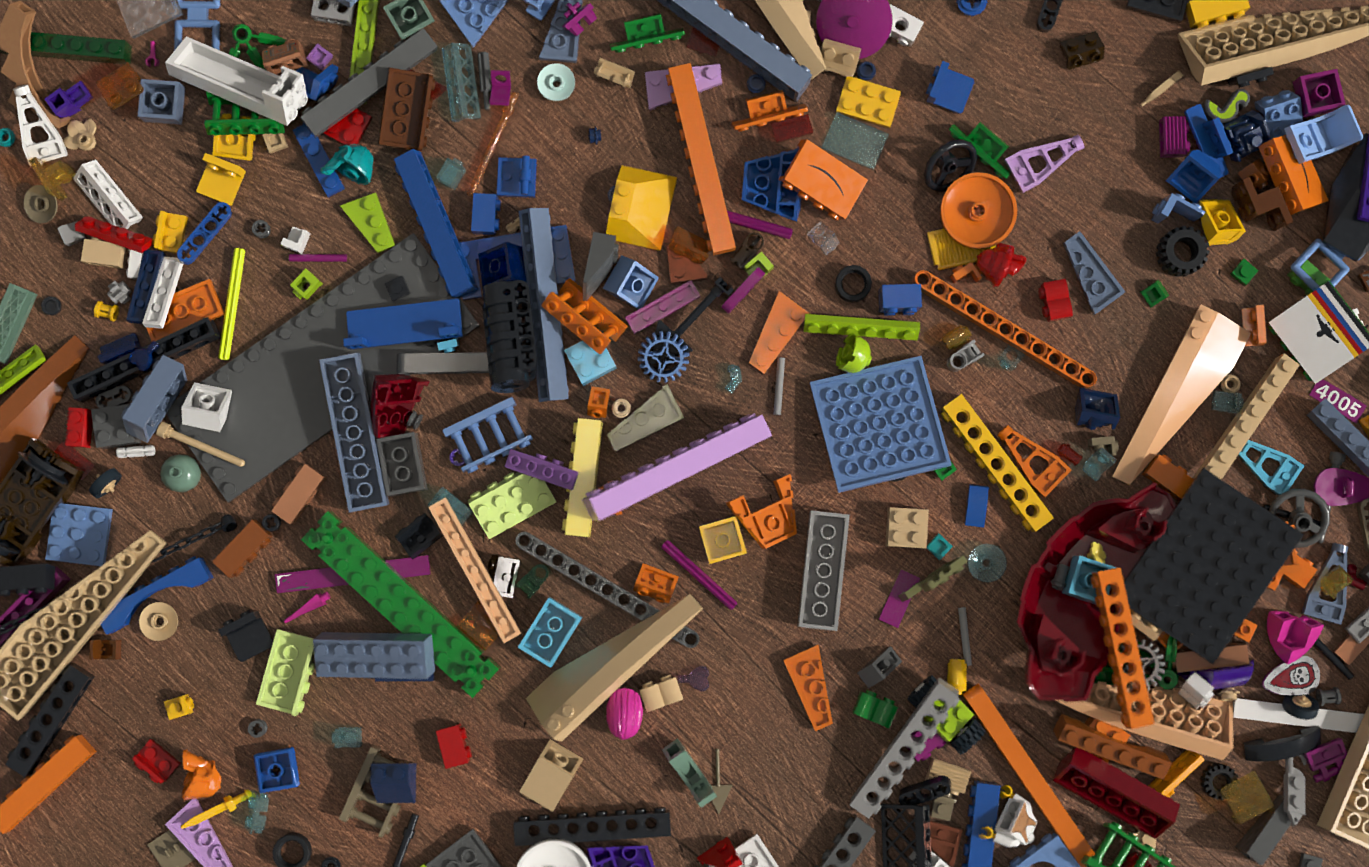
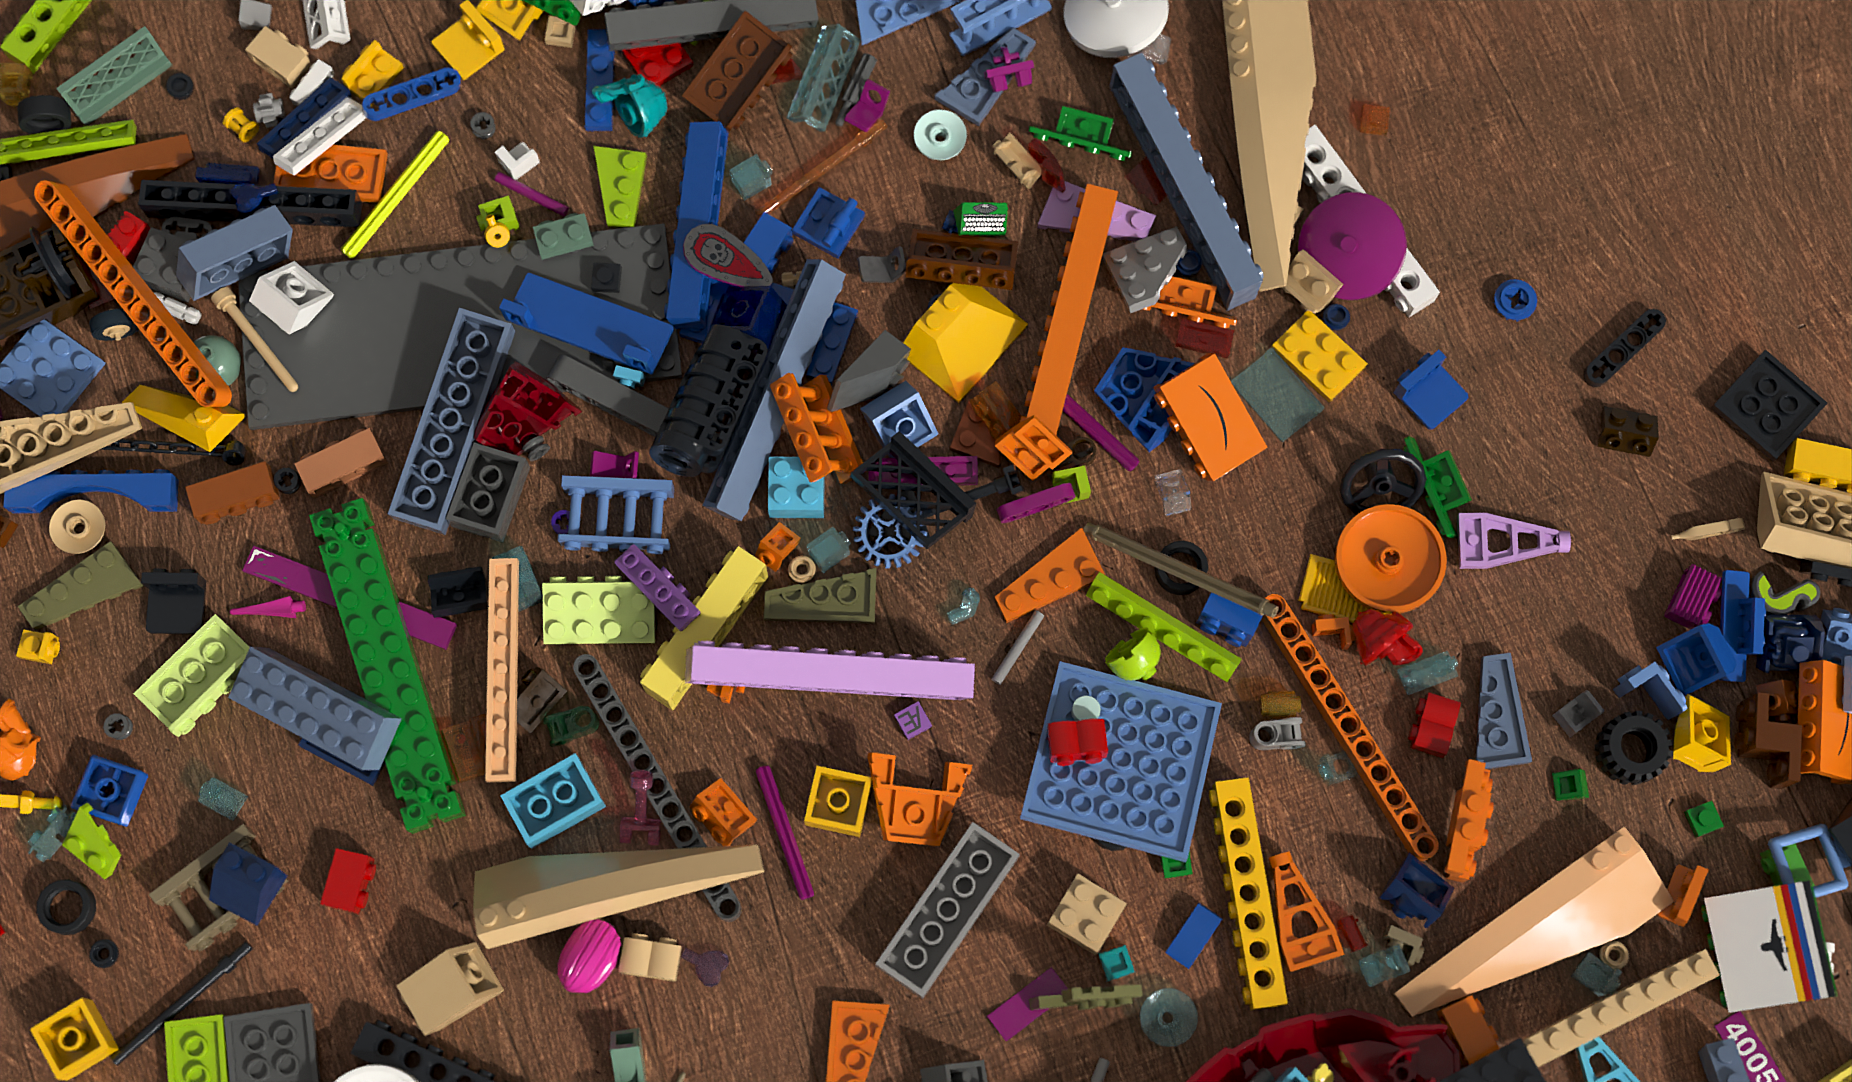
camera: 25 degrees right, 10 degrees down
(97, 459) = (143, 297): none -> orange beam
(113, 234) = (303, 39): red plate -> none
(186, 651) = (91, 581): none -> olive wing
(188, 515) = (185, 416): none -> yellow wedge
(285, 807) = (91, 843): none -> lime wing
(309, 294) = (494, 228): none -> yellow piece
(354, 275) = (563, 235): none -> sand green bracket
(466, 237) = (724, 257): none -> shield
(470, 406) = (613, 465): none -> magenta bracket
(566, 190) = (882, 269): none -> flat silver bracket
(597, 593) = (641, 781): none -> clear pink bar
(612, 124) = (981, 218): none -> slope
(614, 157) = (962, 259): none -> reddish brown bracket
(631, 387) = (829, 549): none -> clear light blue brick
(638, 68) = (1049, 165): none -> clear red slope
(675, 312) = (933, 481): none -> black fence
(724, 258) = (1032, 447): none -> orange slope
(732, 102) = (1145, 267): none -> light grey plate
(739, 465) = (912, 720): none -> medium lavender tile
(833, 288) = (1181, 570): none -> dark tan piece
(842, 405) = (1085, 708): none -> light aqua tile
(848, 427) = (1077, 741): none -> red brick
(1035, 269) = (1428, 672): none -> clear light blue hinge
(1106, 350) = (1468, 821): none -> orange bracket
(1138, 247) = (1578, 713): none -> flat silver bracket

